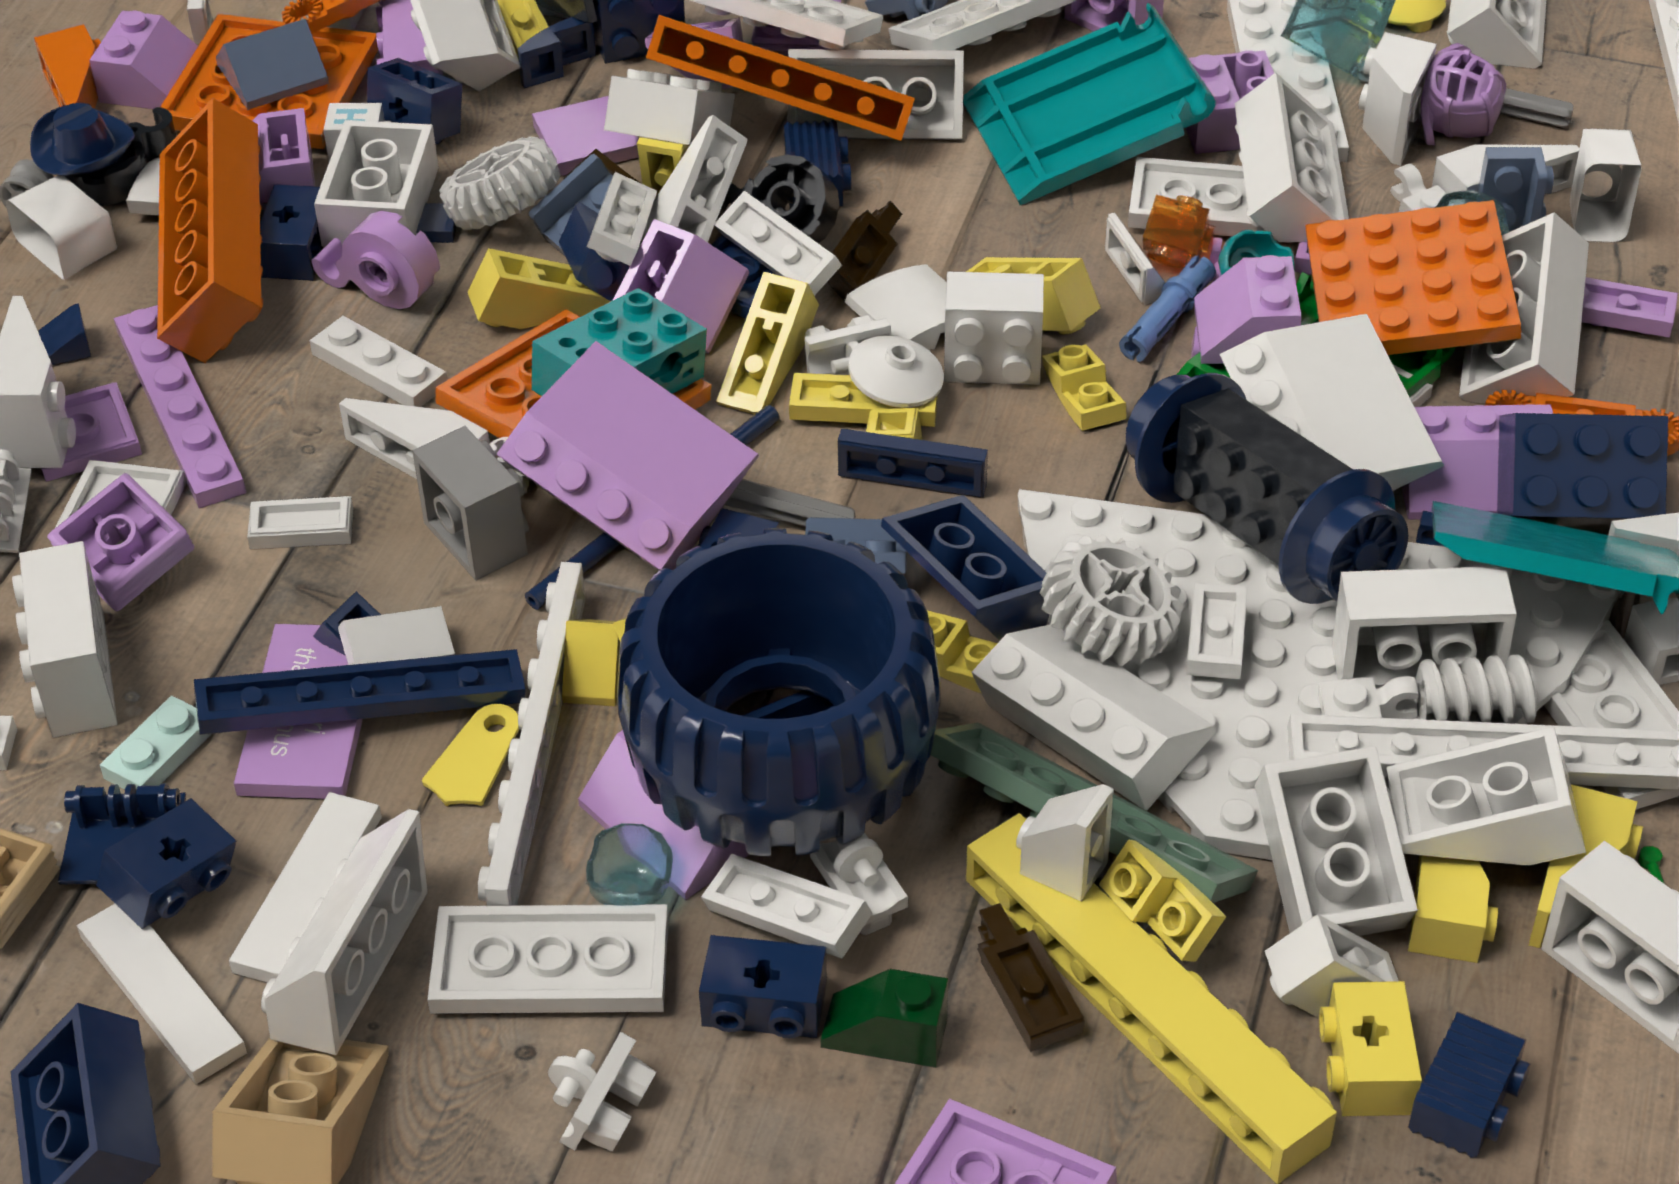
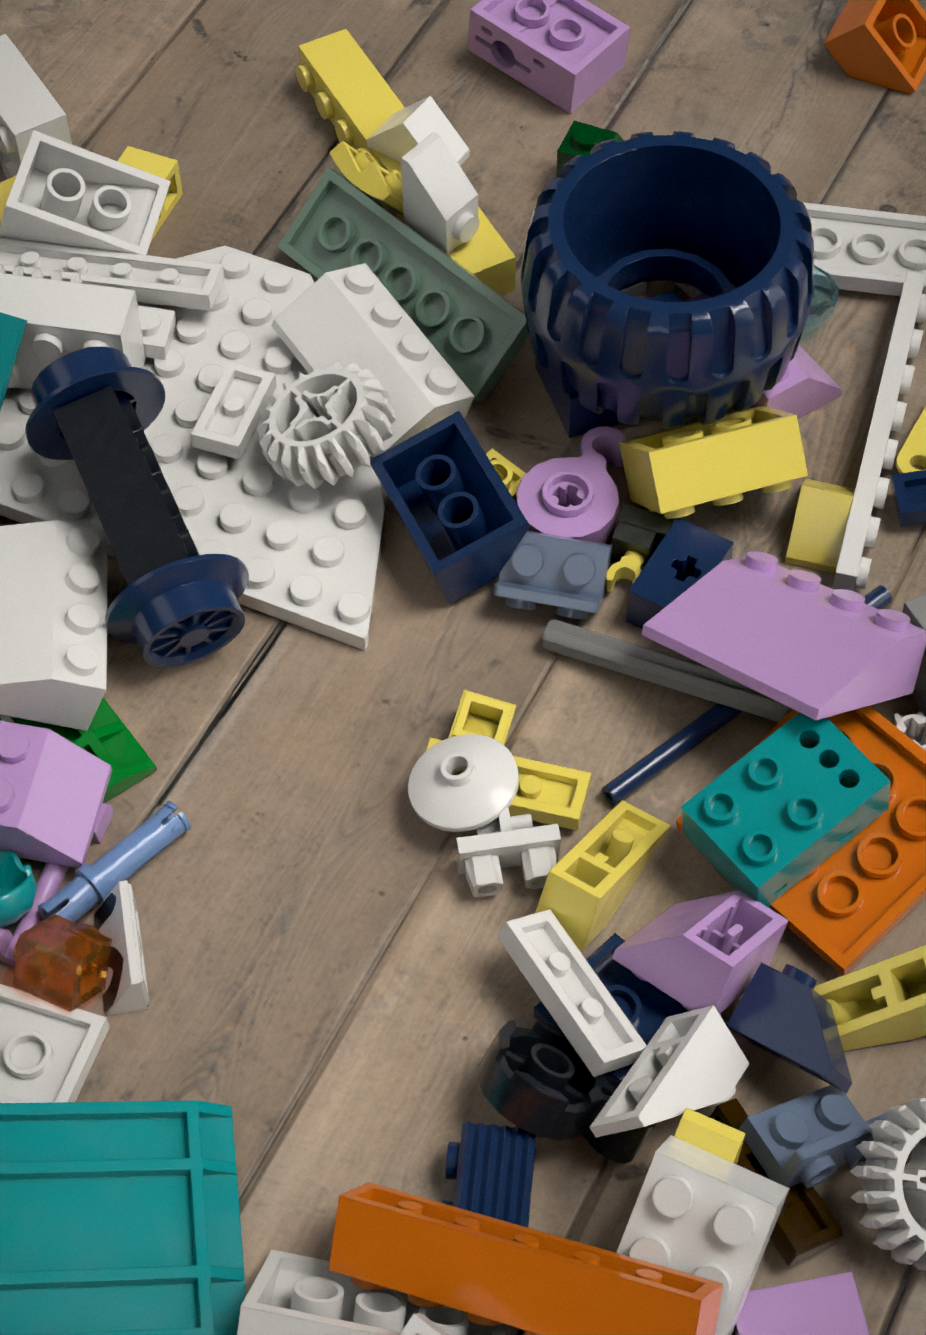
camera: 170 degrees left, 10 degrees up
(595, 1118) = (832, 149): white hips -> none
(622, 219) = (770, 1023): white plate -> none
(864, 249) = (455, 1022): dark brown hinge -> none
(910, 301) = (416, 918): white slope -> none
(912, 462) = (452, 673): dark blue tile -> none
(993, 327) = (337, 814): white brick -> none
(1027, 981) = (496, 188): dark brown hinge -> none
(1066, 291) = (274, 916): light yellow slope -> none
(1082, 387) = (250, 773): light yellow slope -> none
(1127, 956) = (411, 126): none -> white slope
(1318, 955) = (254, 156): white slope -> none
(1336, 842) = (217, 206): white brick -> none
(1371, 1048) = (248, 107): light yellow brick -> none
(1468, 1084) = (189, 78): dark blue brick -> none

